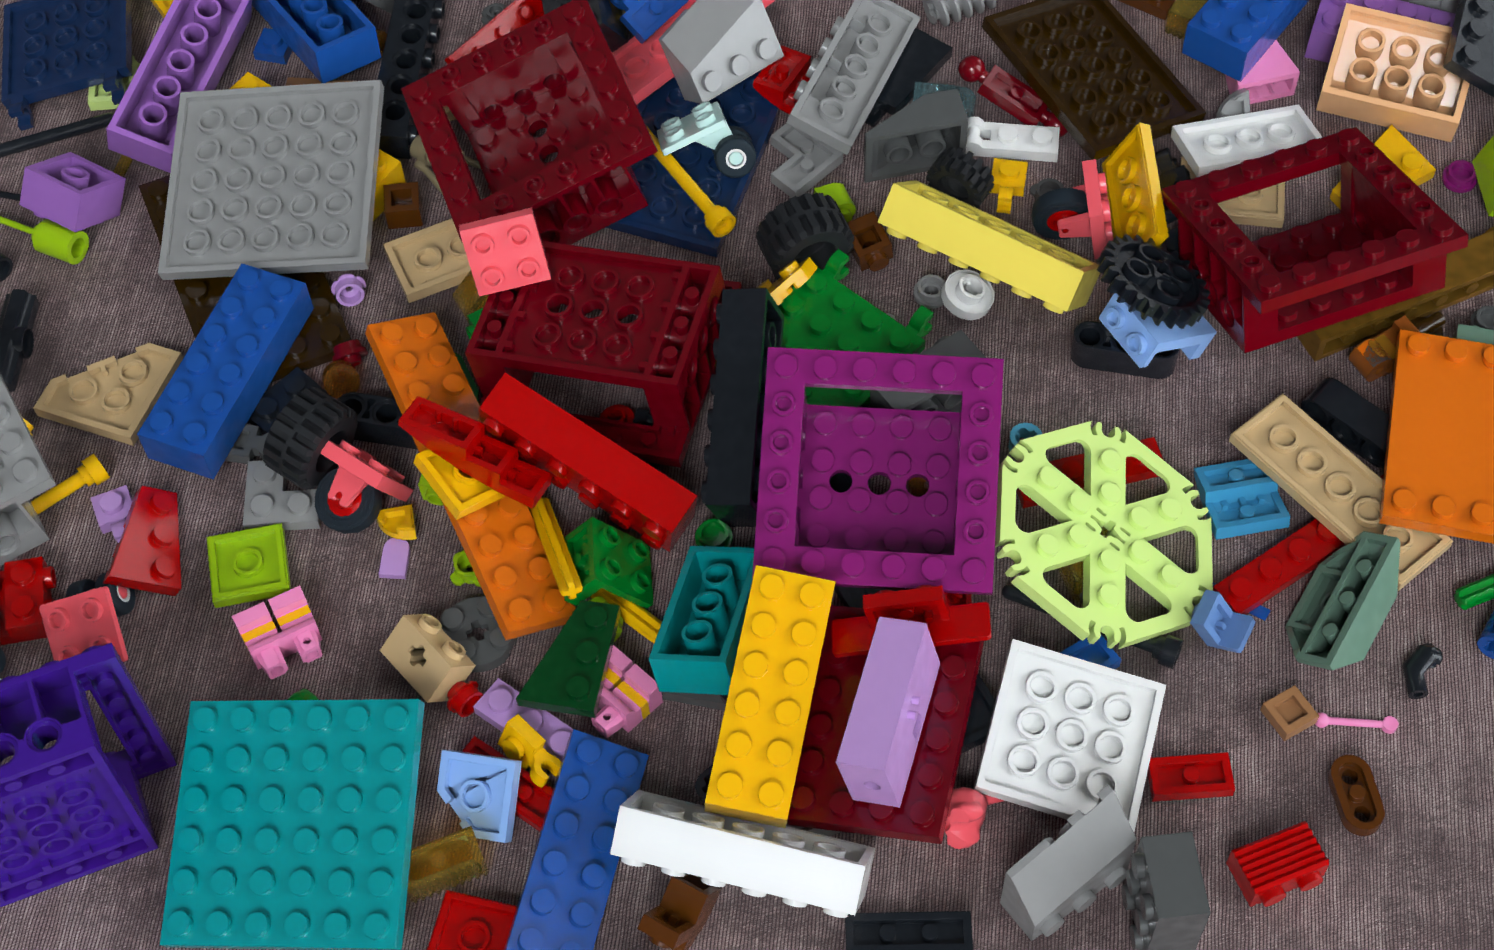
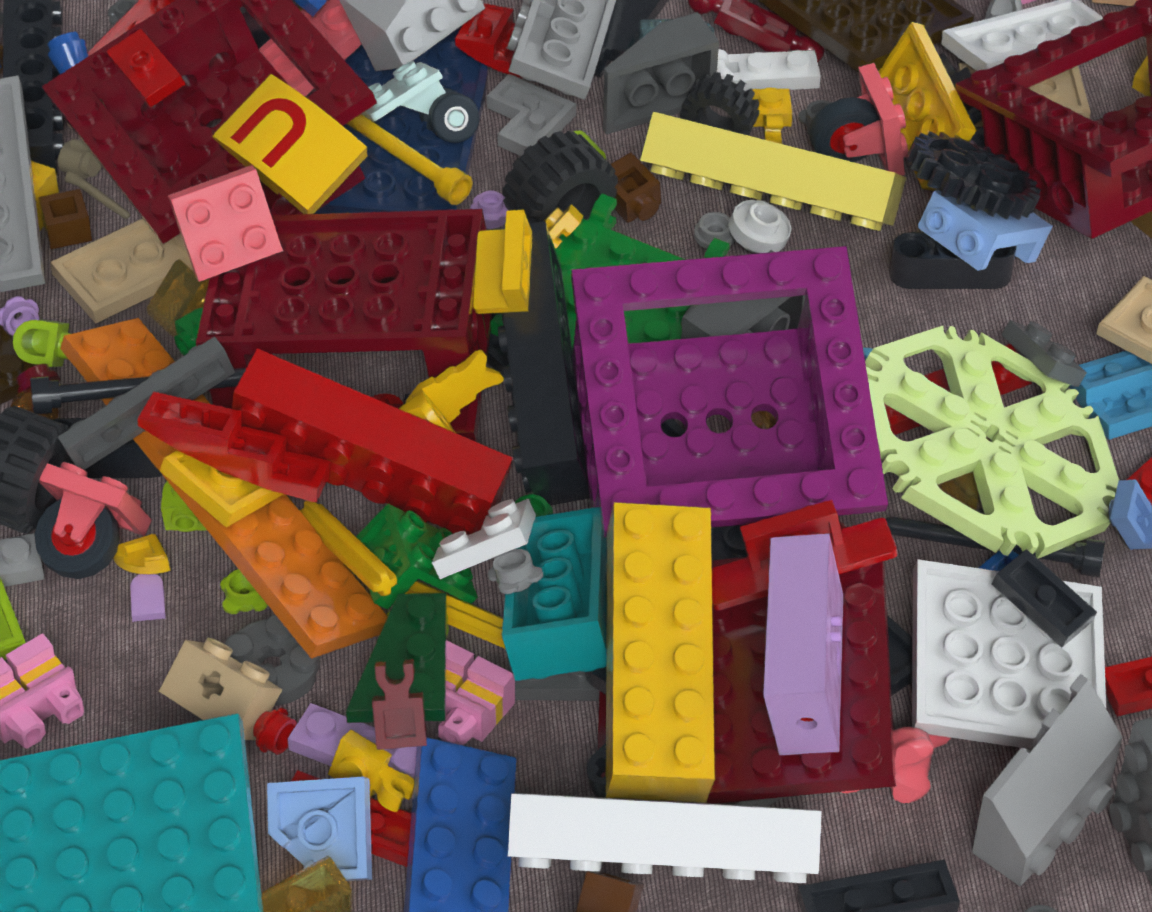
camera: 15 degrees left, 10 degrees down
(341, 379) = (50, 394): none -> black piece
(356, 314) = (41, 342): none -> lime plate
(435, 54) = (67, 51): none -> blue cone
(442, 388) = (117, 422): none -> dark grey plate
(479, 90) = (145, 67): none -> red plate
(552, 710) = (398, 714): none -> dark red plate
(576, 183) = (291, 144): none -> yellow slope
(654, 430) = (442, 397): none -> yellow hair
(669, 567) = (502, 531): none -> white plate
(673, 601) = (514, 571): none -> light grey plate
(723, 324) = (504, 266): none -> yellow panel
(745, 248) = (493, 208): none -> lavender plate
(1110, 692) = (1044, 598): none -> black plate
(1178, 452) = (1048, 356): none -> dark grey plate

